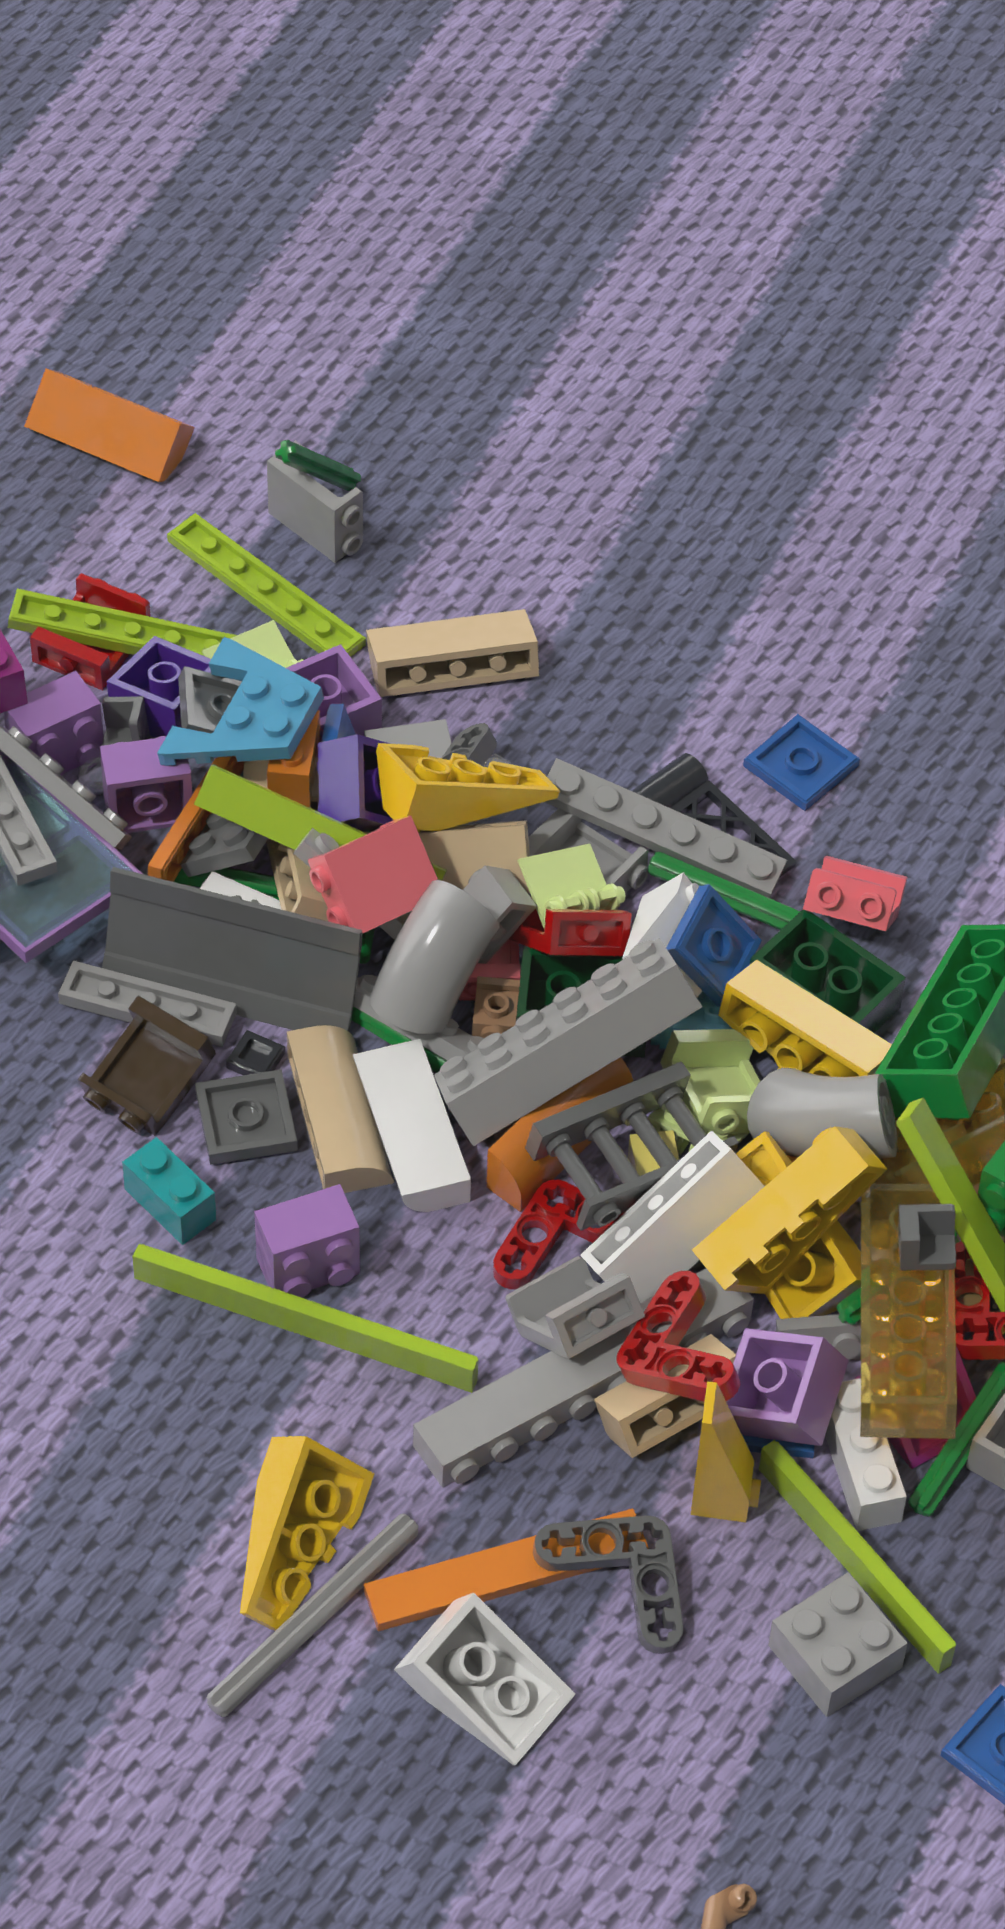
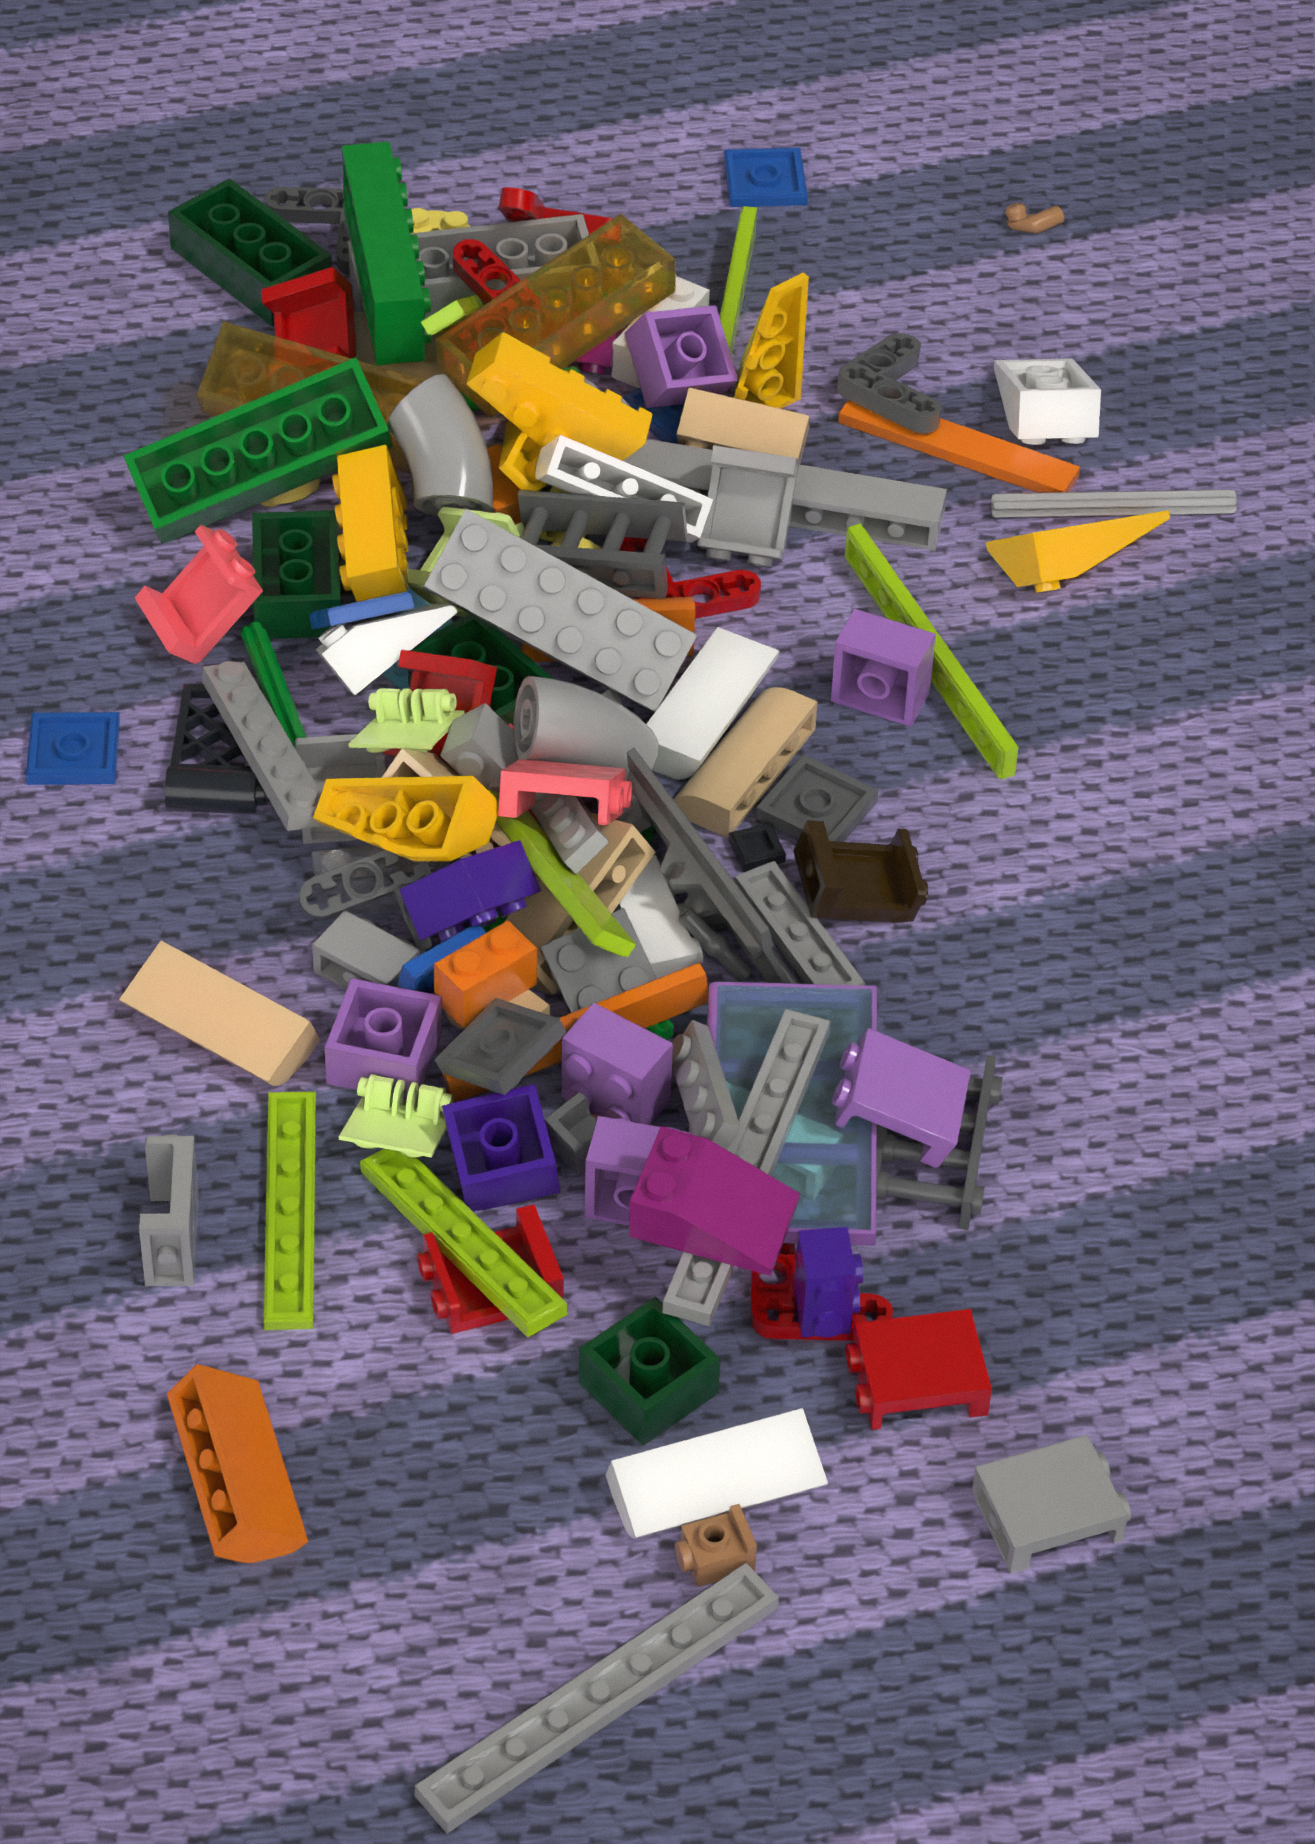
camera: 135 degrees left, 5 degrees down
(169, 1190) = (936, 786): teal brick -> none
(262, 718) = (492, 975): dark azure wing -> none
(317, 465) = (147, 1200): green axle -> none
(663, 1348) = (736, 419): red beam -> none
(837, 1644) = (816, 250): light grey brick -> none
(927, 1237) = (511, 305): dark grey panel -> none

